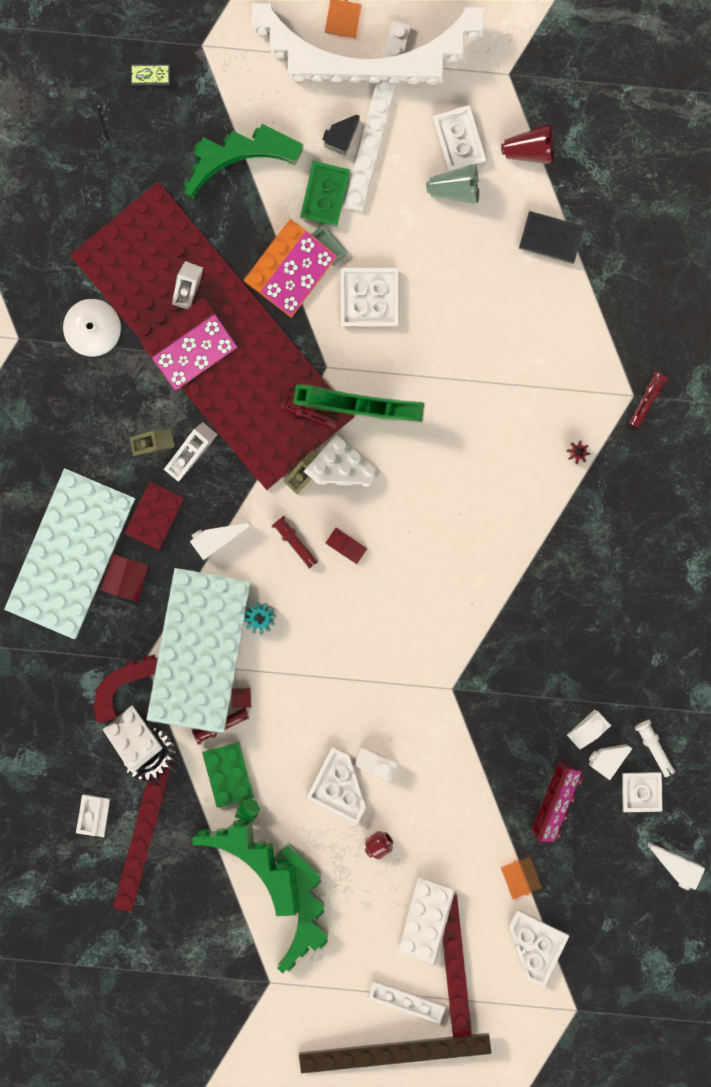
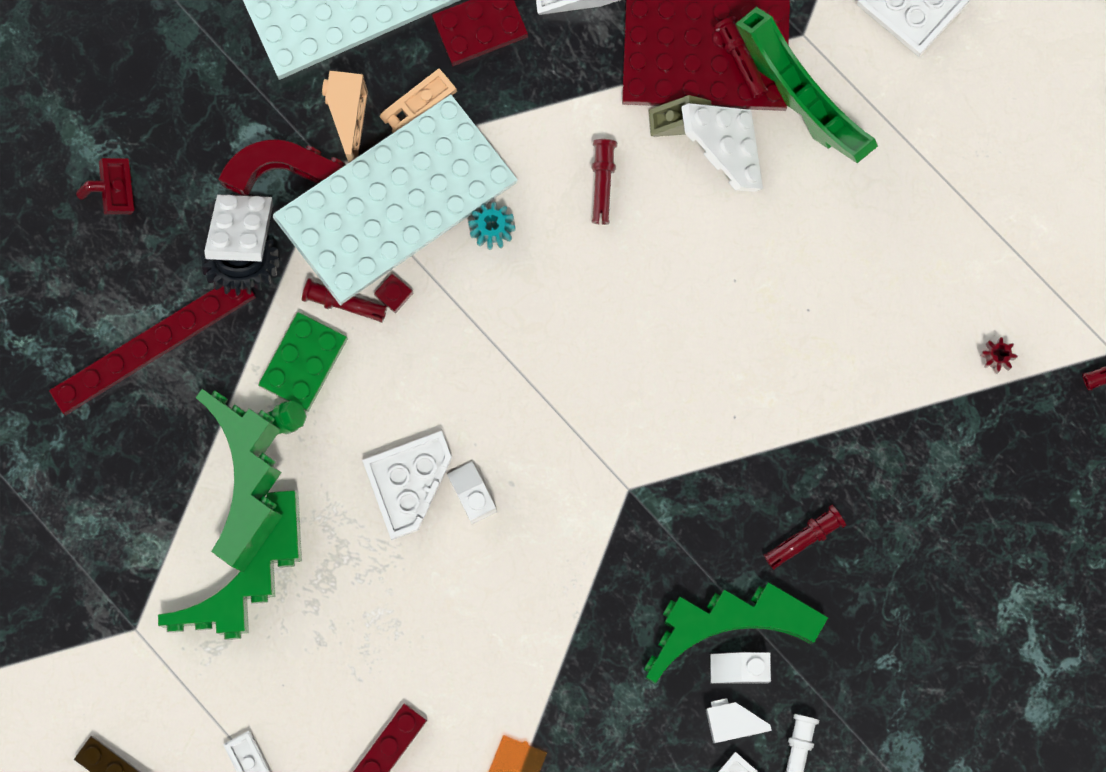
camera: 45 degrees right, 10 degrees down
(45, 773) = (114, 185): none -> dark red plate
(93, 815) = (121, 275): white plate -> none
(124, 577) = (390, 61): dark red slope -> none
(128, 626) = (347, 102): none -> light nougat slope
(161, 586) = (418, 100): none -> light nougat plate
(212, 540) = (520, 102): white slope -> none
(346, 545) = (654, 231): dark red slope -> none
(378, 845) = (393, 583): dark red head -> none
(426, 920) = (368, 715): white plate -> none
(546, 730) = (771, 611): none -> green arch
(556, 802) = (633, 714): slope -> none
(564, 626) = (816, 530): none -> dark red pin

